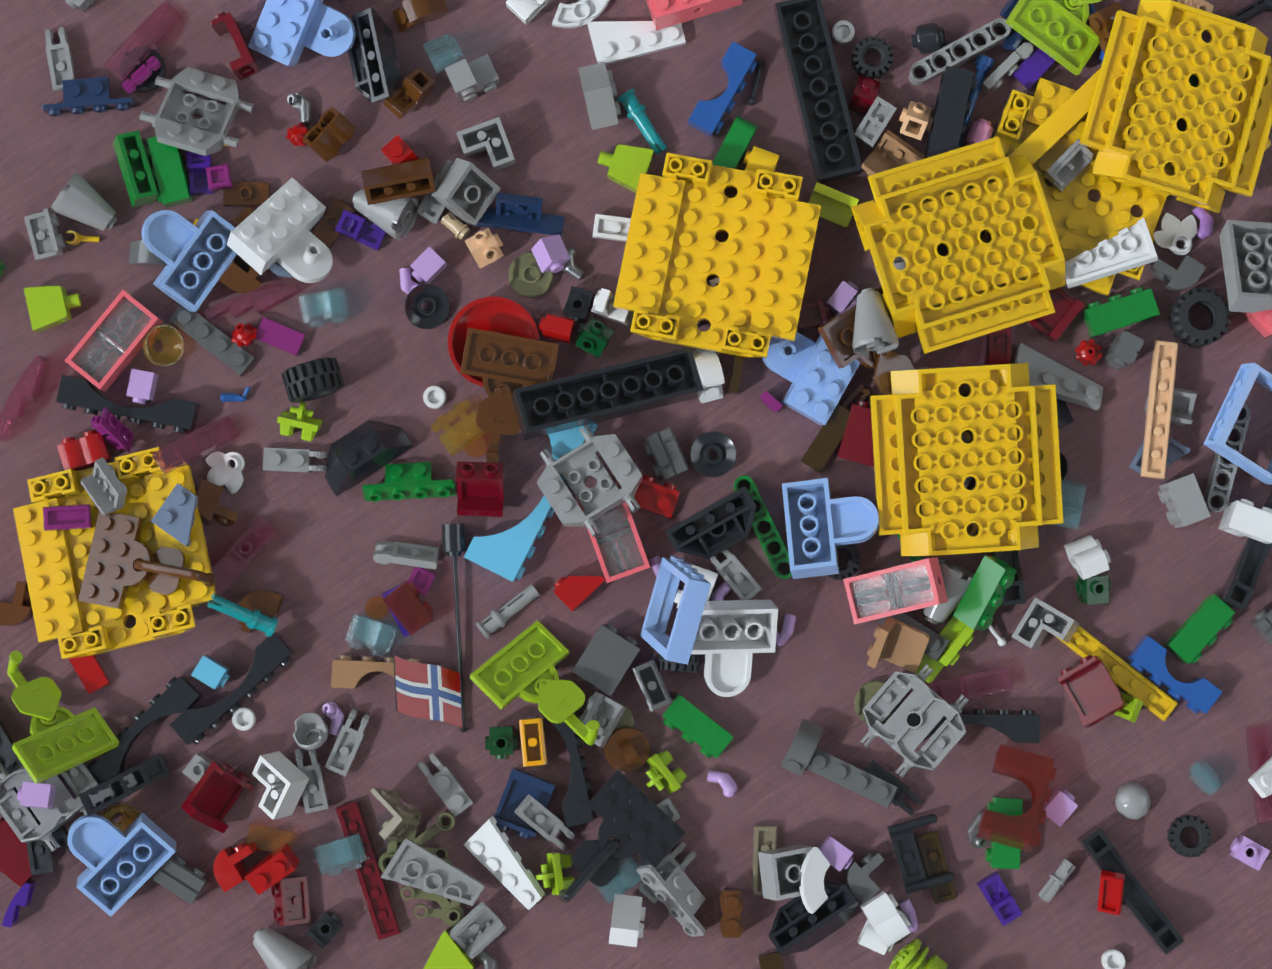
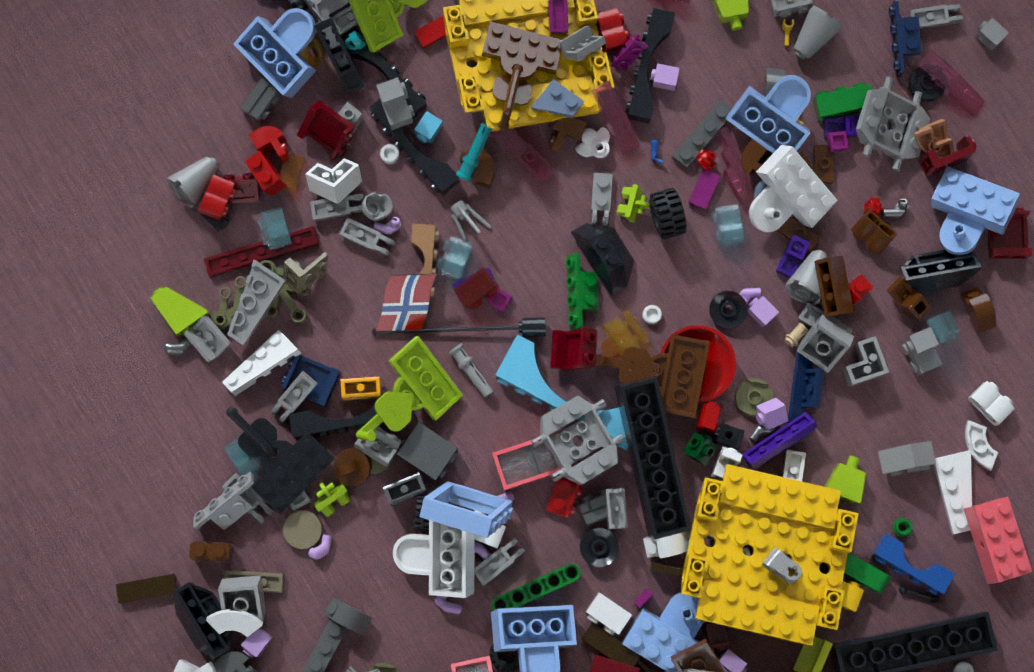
camera: 85 degrees right, 5 degrees down
(103, 763) = (357, 40): none -> teal tile
(113, 341) = (702, 54): clear brick -> none
(135, 168) = (845, 74): green brick -> none
(141, 74) = (923, 80): magenta axle -> none
(172, 345) = (698, 102): clear yellow piece -> none
(183, 714) = (393, 98): none -> light grey brick
(214, 60) = (935, 137): none -> nougat brick
(305, 926) = (216, 198): none -> red brick
(313, 628) = (461, 211): none -> light grey plant
(376, 608) = (476, 262): clear orange tile -> none
(406, 554) = (520, 288): light grey hinge -> none
(447, 786) = (327, 317): light grey hinge -> none
(485, 247) = (777, 358): light nougat brick -> none
(505, 733) = (369, 362): dark green brick -> none
(552, 872) = (259, 405): lime hips -> none
(576, 589) = (487, 427): red slope -> none
(583, 244) = (779, 441): none -> dark purple fence
(626, 920) = (208, 461): white brick -> none
(637, 113) = (892, 490): teal pin -> none
(668, 435) = (616, 508): none -> light grey hinge
(679, 94) = (908, 527): none -> green plate
(696, 727) = (368, 526): green brick -> none
(702, 805) = (302, 529): none -> dark tan tile
(715, 526) = (537, 546): black wedge -> none
(729, 244) = (780, 565): none -> light grey piece
(789, 442) = (608, 613): none -> white brick

